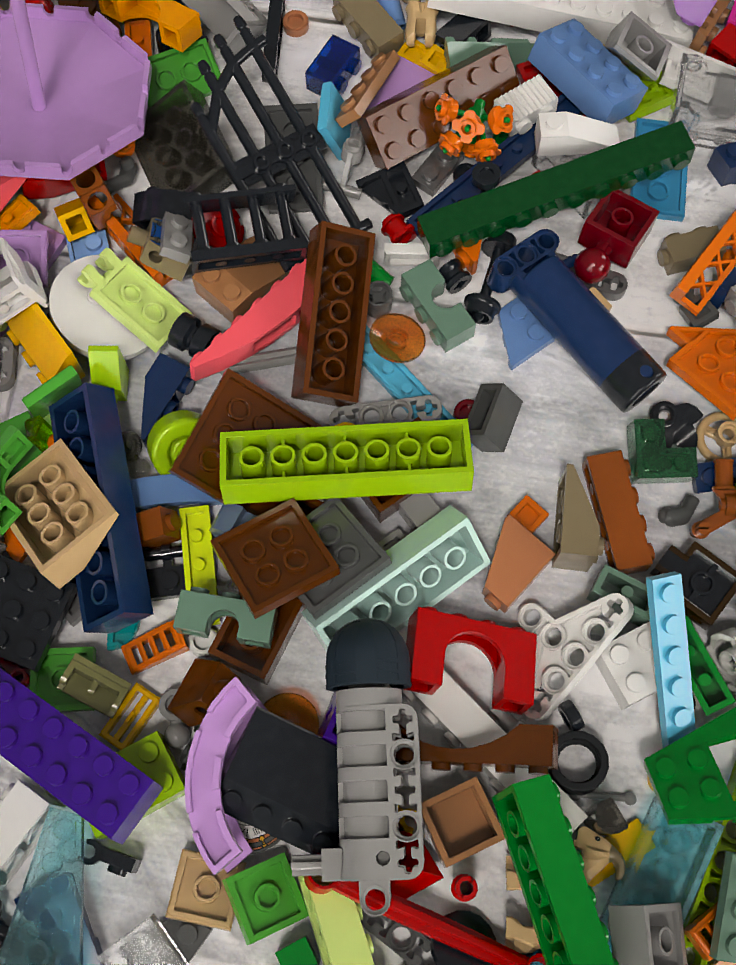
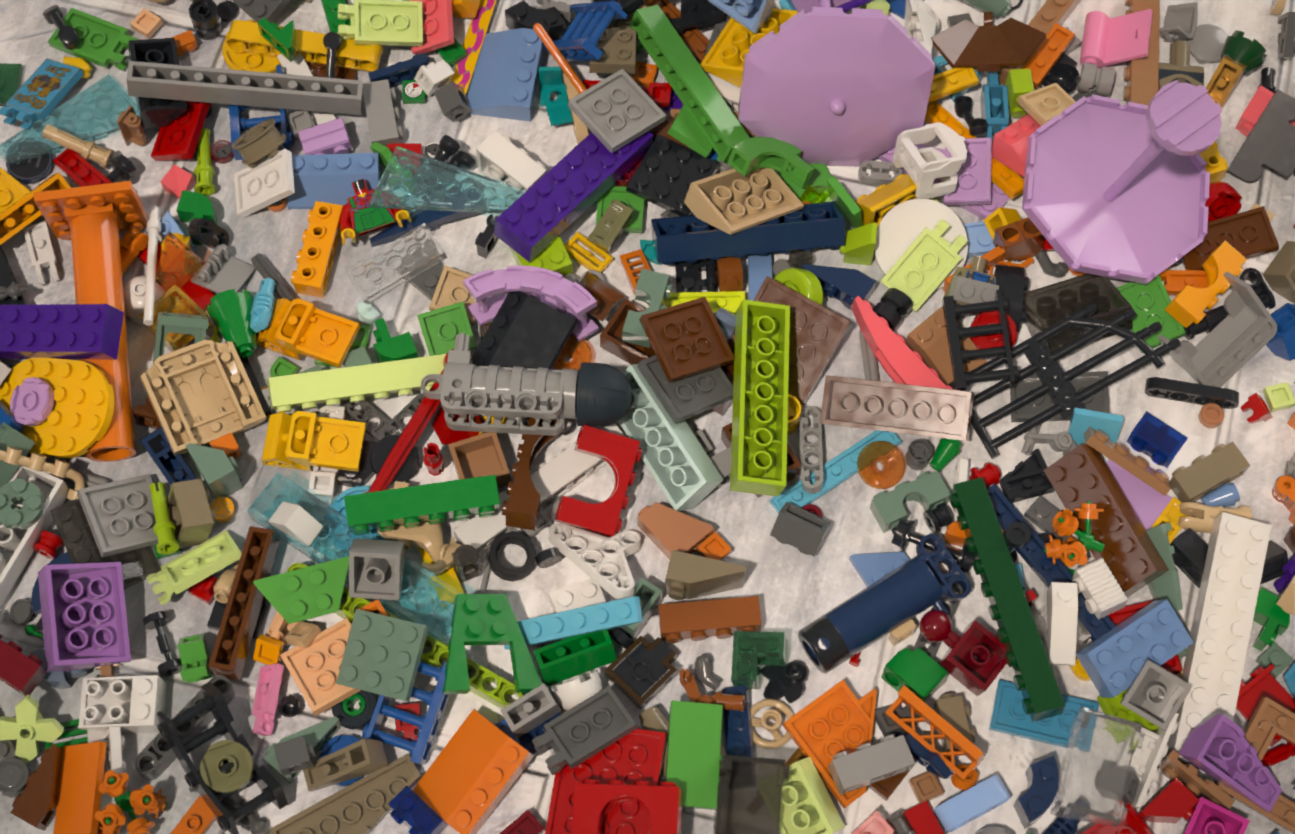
camera: 95 degrees right, 5 degrees down
(648, 288) = (916, 672): none -> green piece

